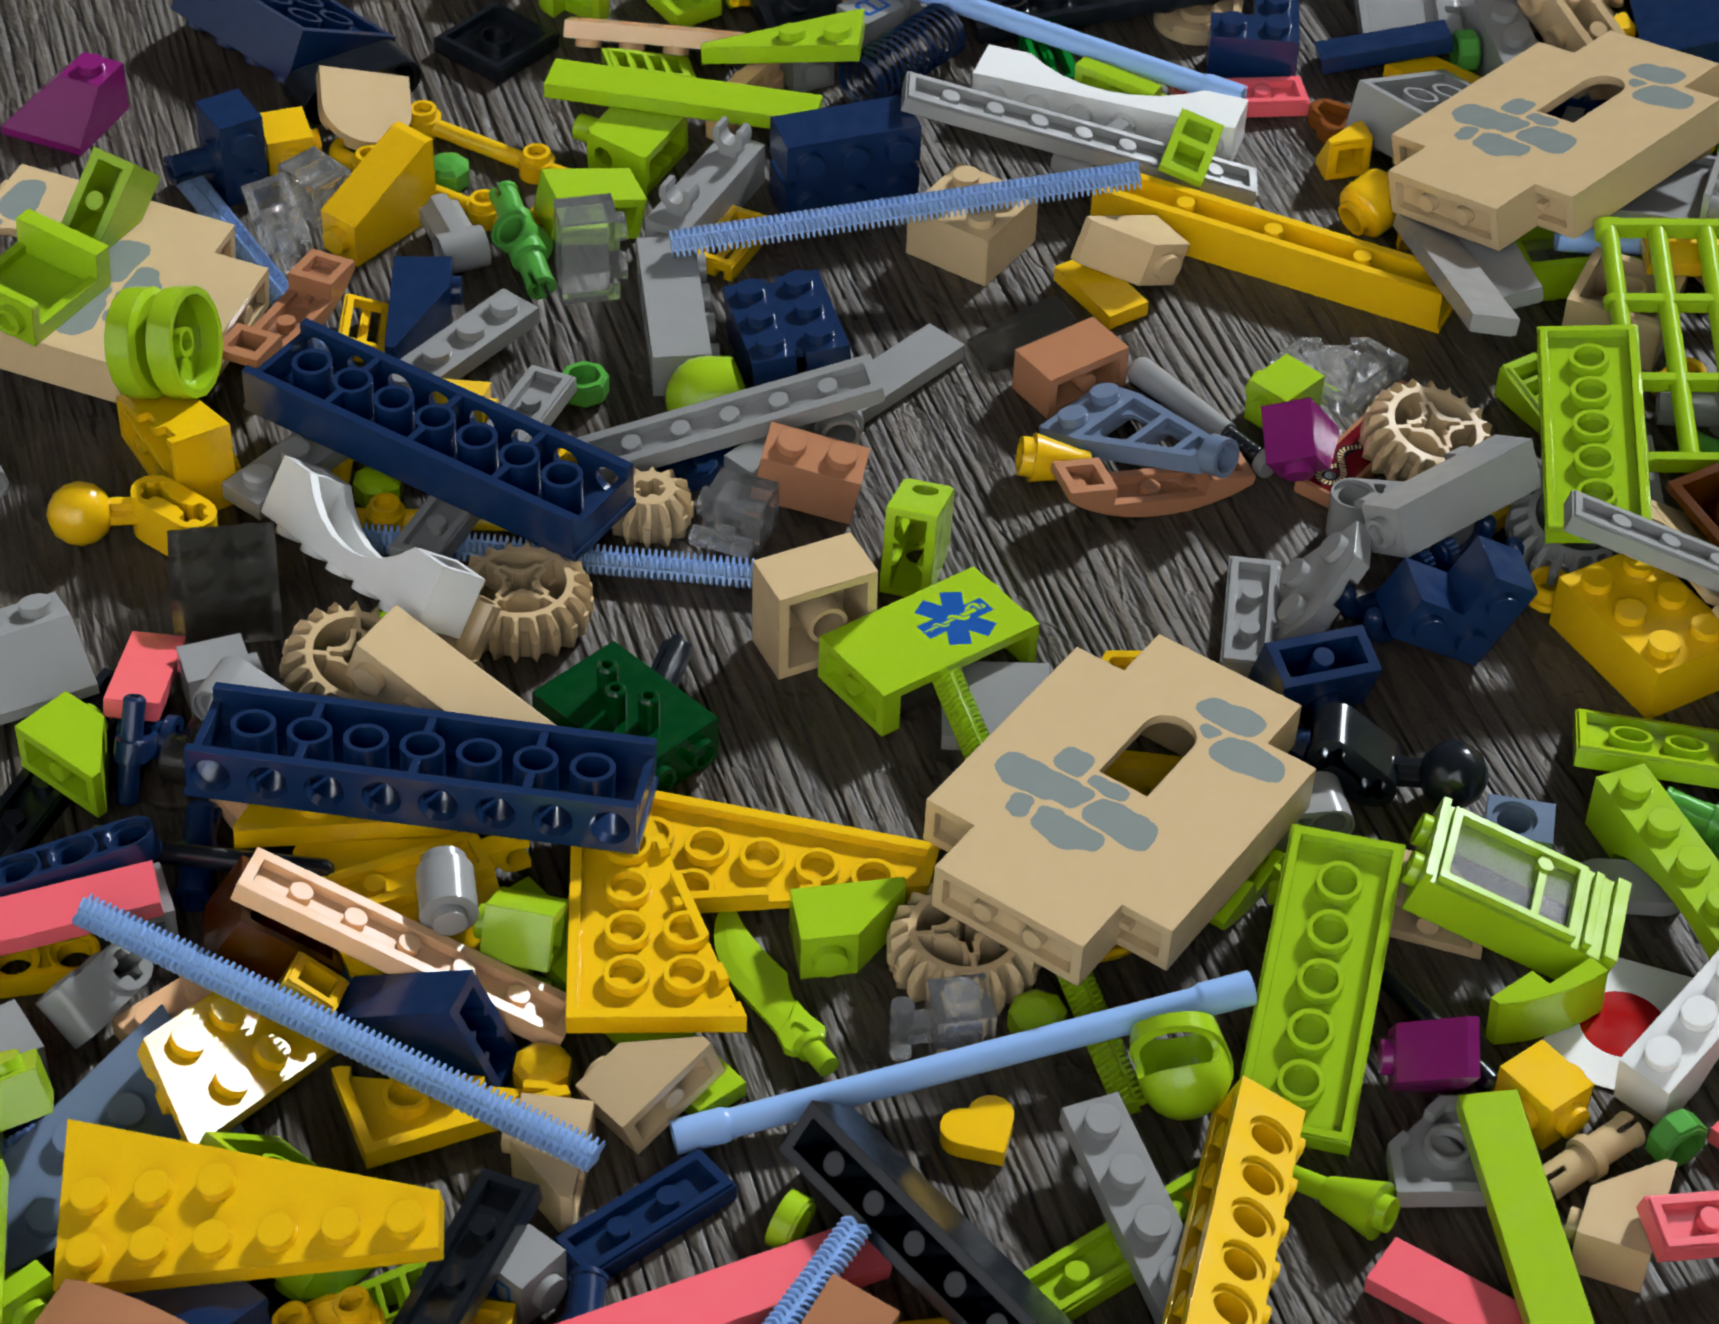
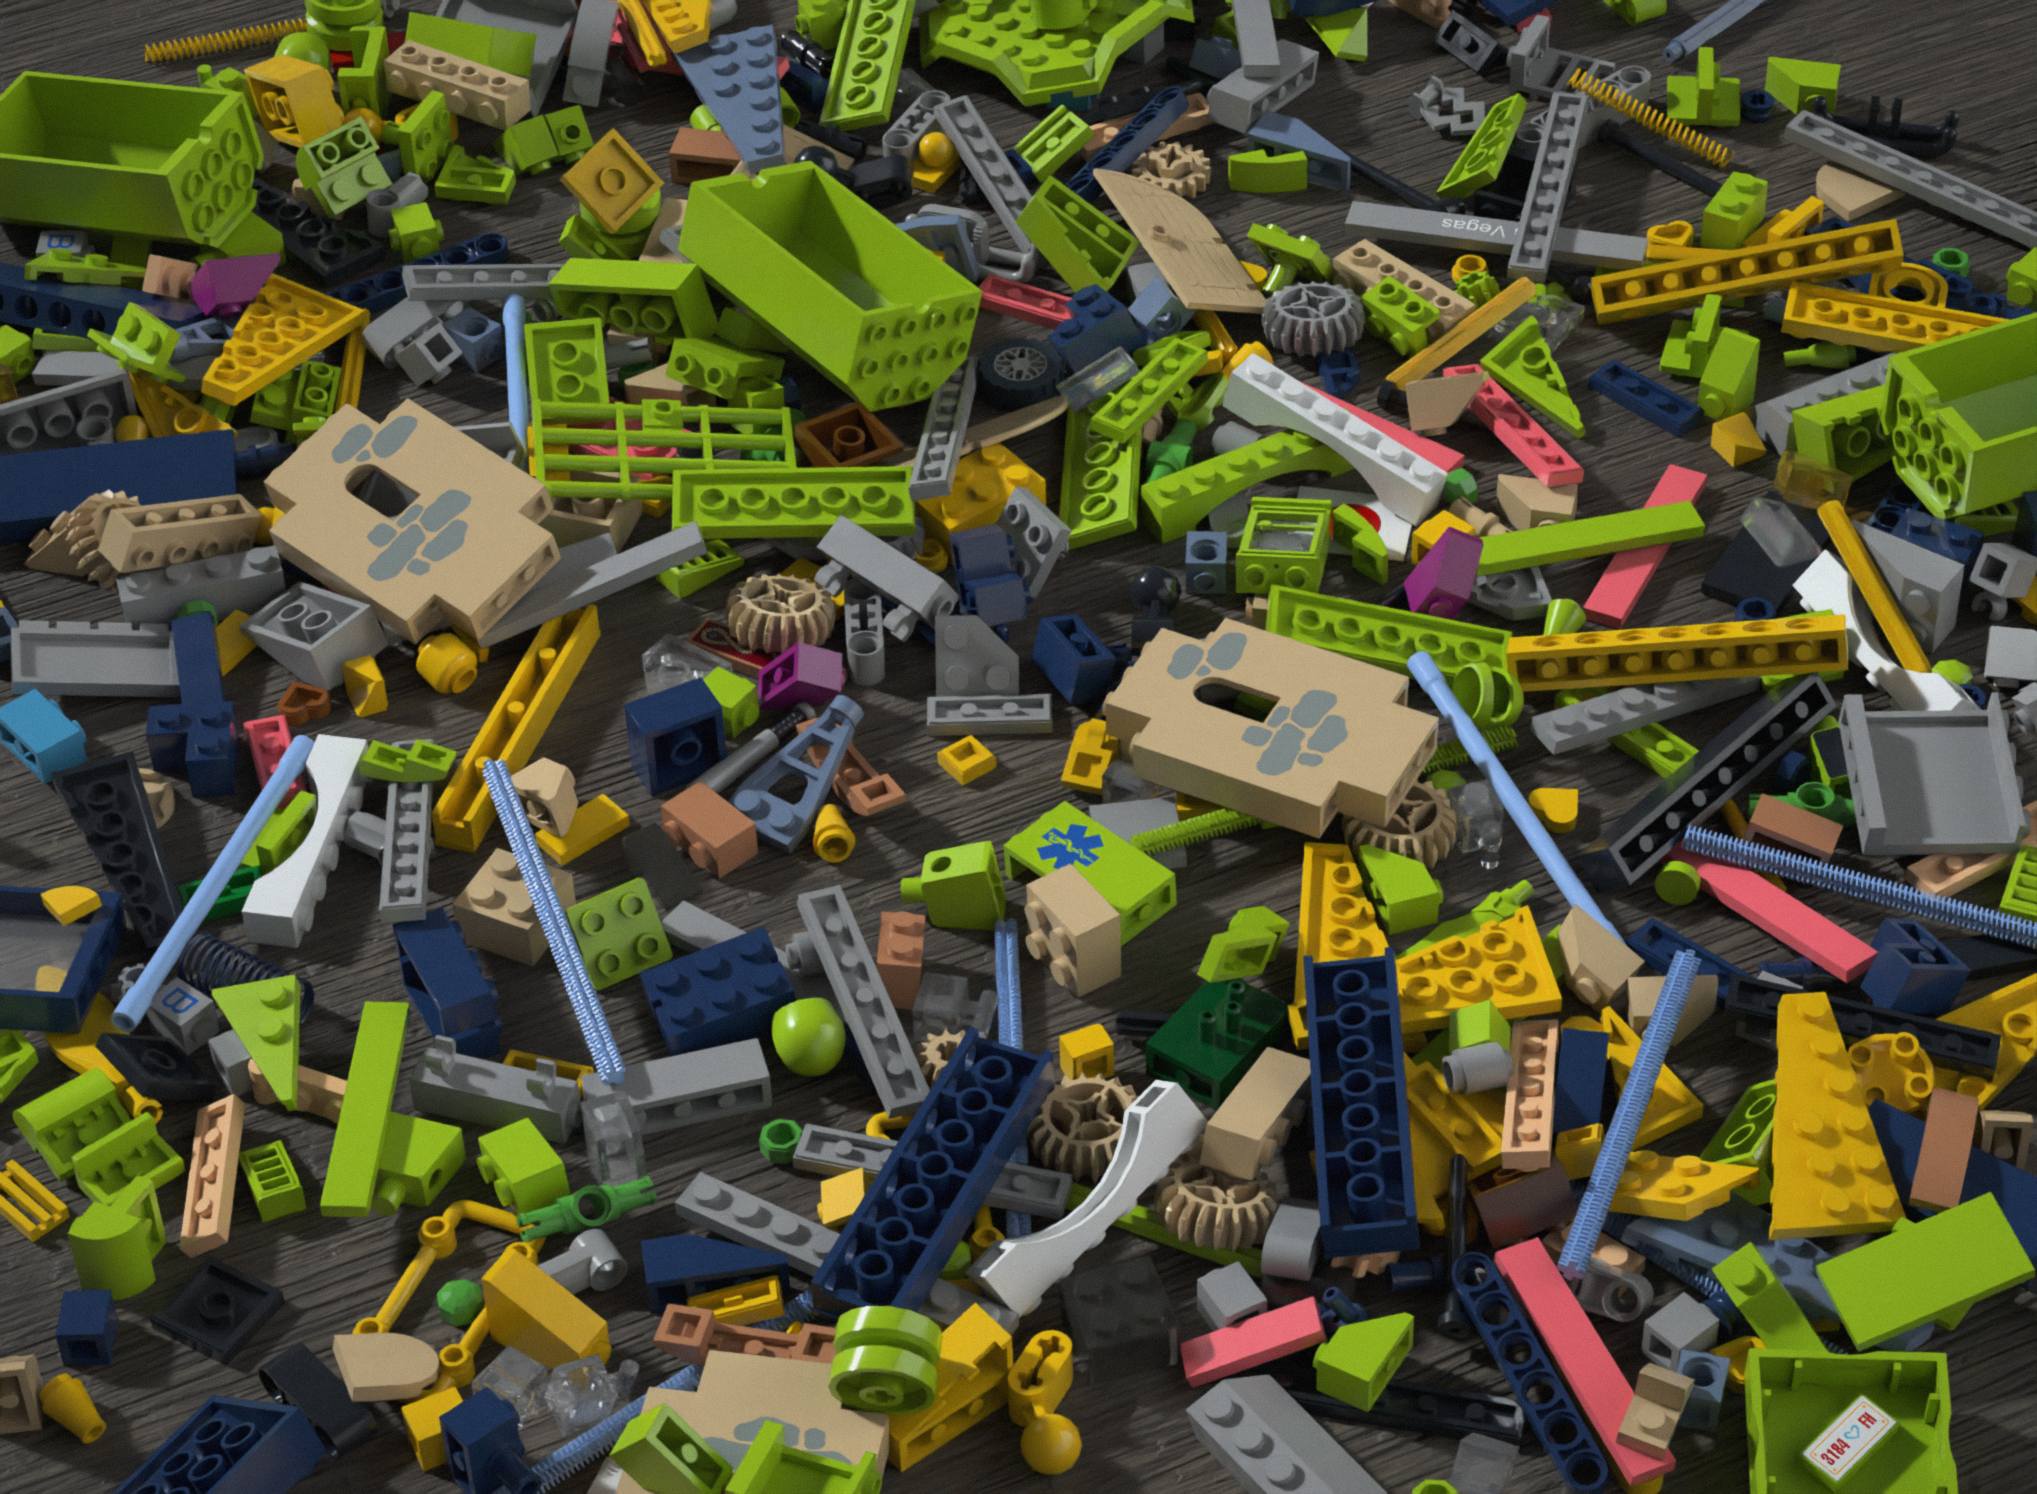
camera: 95 degrees left, 0 degrees up
(629, 608) = (1088, 1052): none -> yellow slope
(737, 739) = (1246, 947): none -> lime slope
(908, 283) = (618, 933): none -> lime bracket
(1170, 589) = (966, 760): none -> yellow tile
(1207, 333) = (675, 735): none -> dark blue brick
(1545, 657) = (1036, 537): none -> light grey plate

